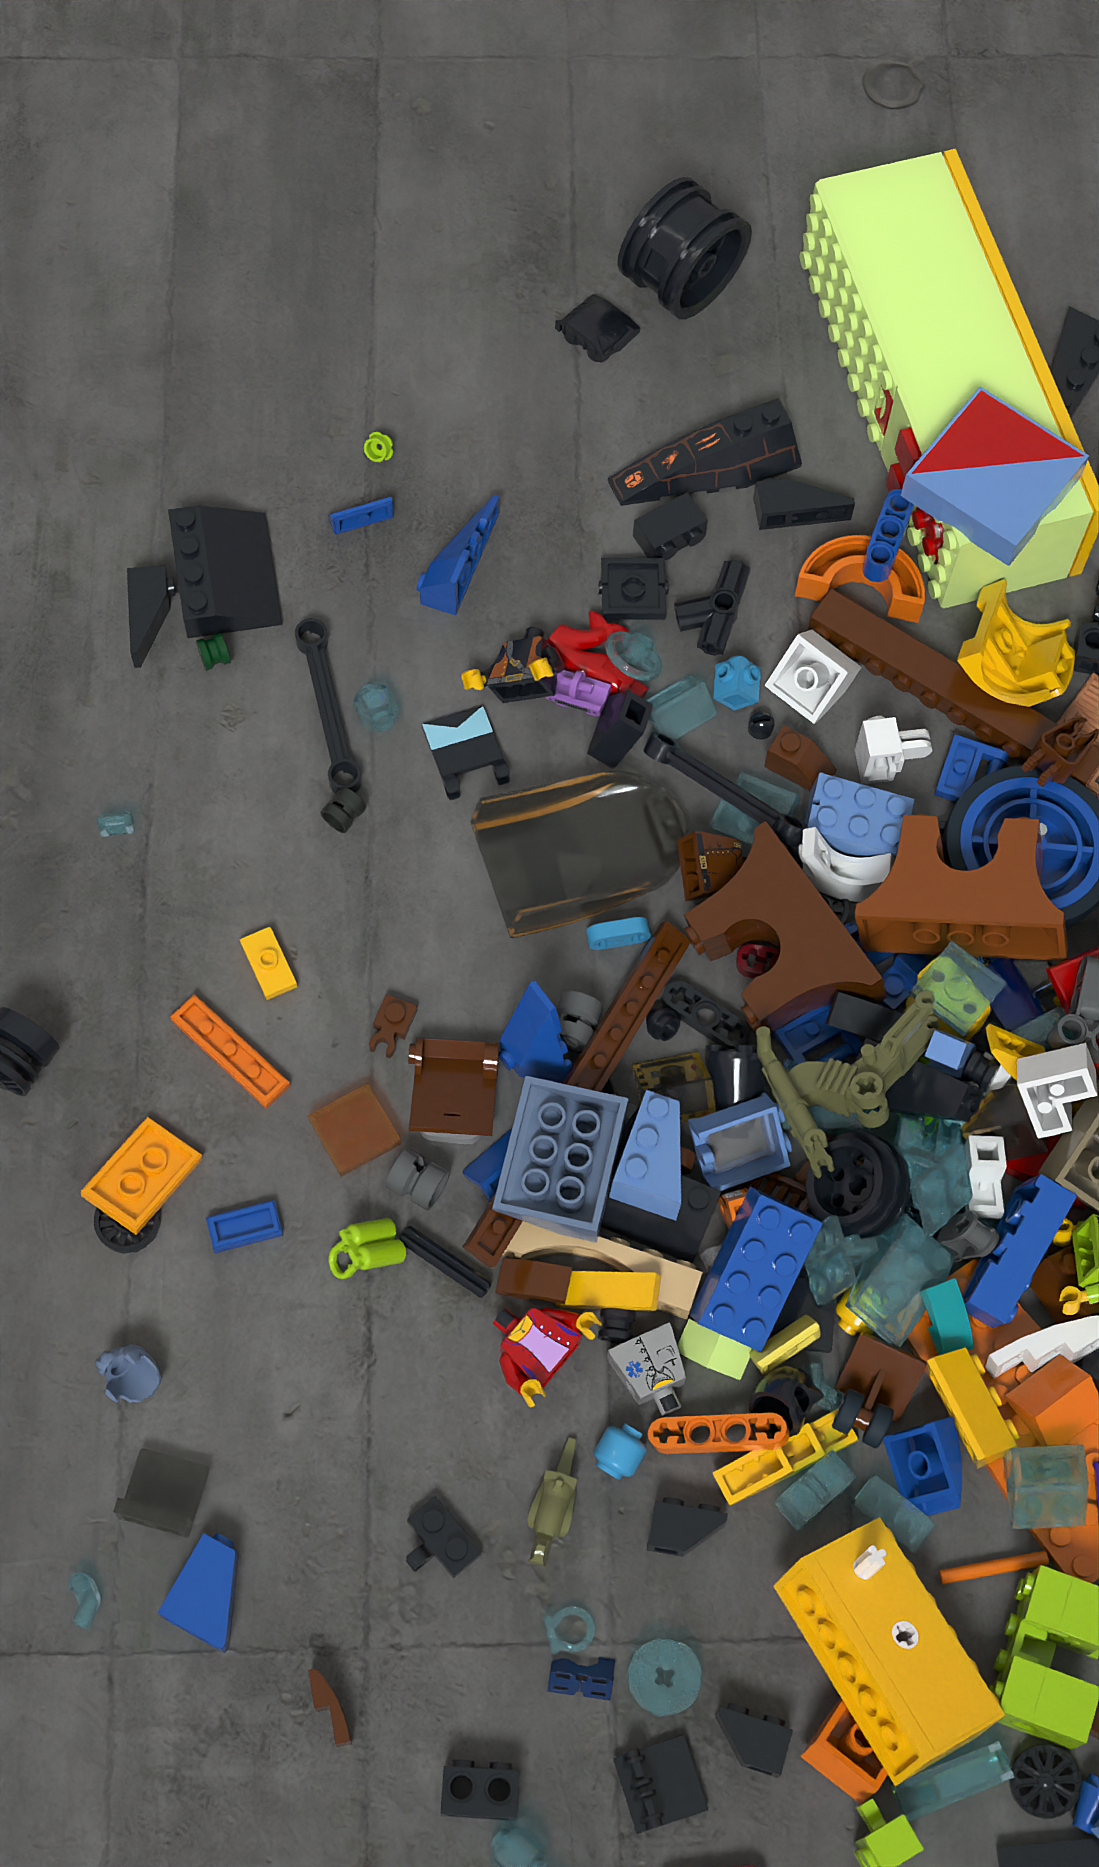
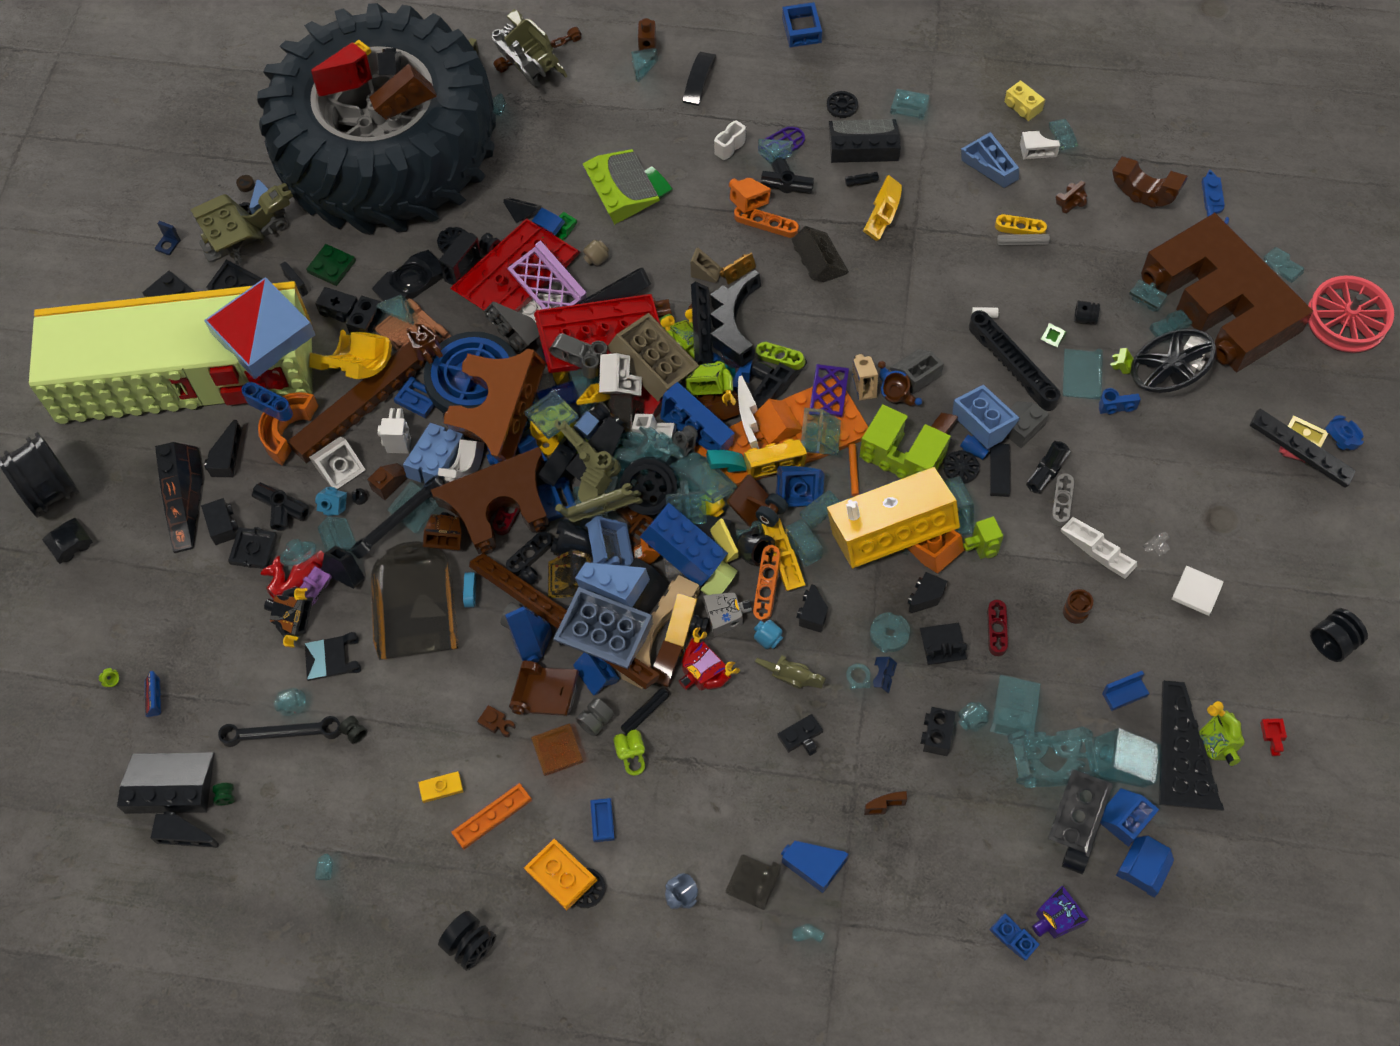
camera: 75 degrees left, 5 degrees down
(455, 565) = (211, 643): blue wedge -> none

